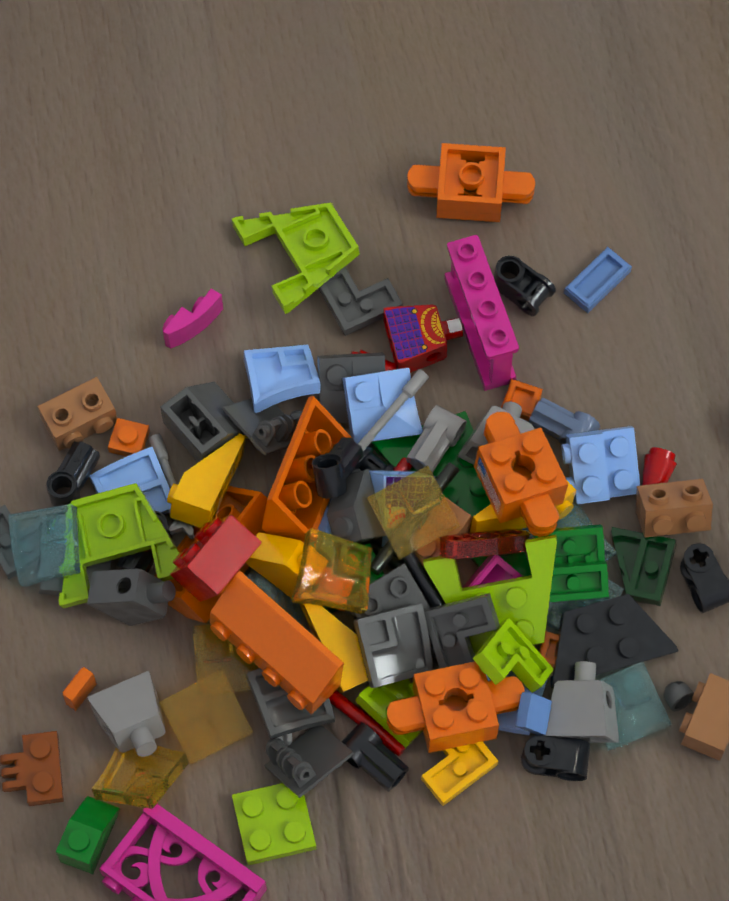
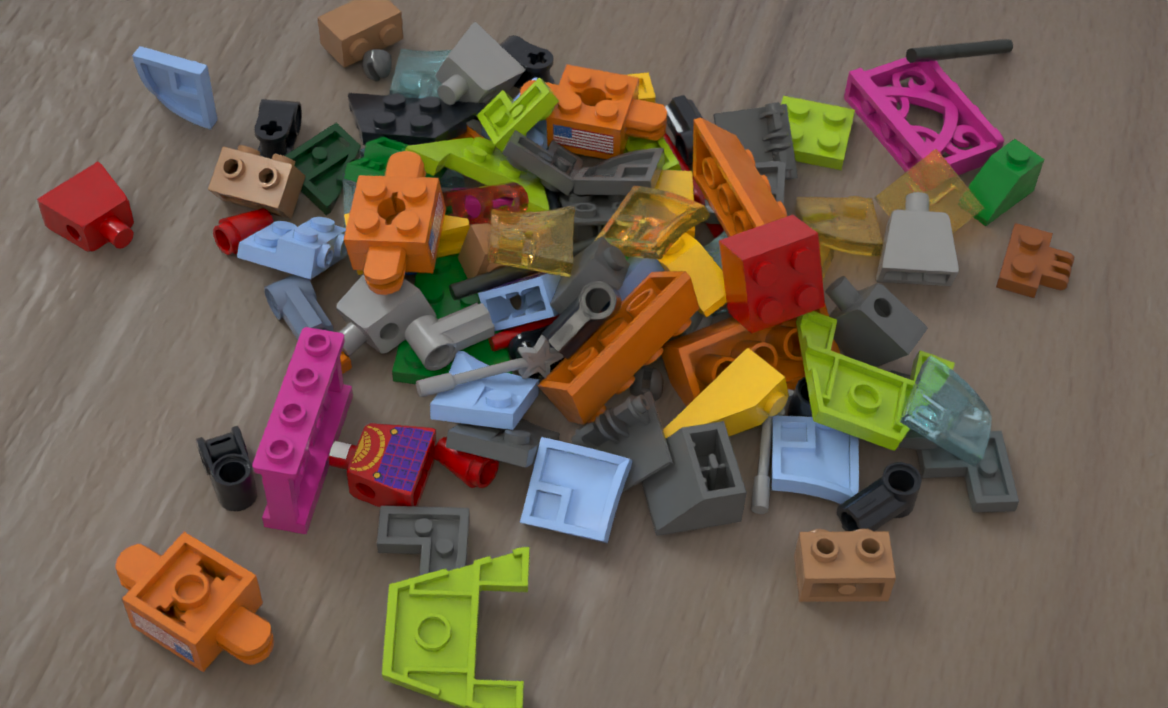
camera: 155 degrees left, 15 degrees down
(79, 688) = (960, 297): orange tile -> none
(128, 437) = (789, 519): orange plate -> none
(188, 324) = (655, 607): dark pink slope -> none
(533, 713) = (525, 73): medium blue tile -> none
(597, 280) = (137, 443): medium blue tile -> none

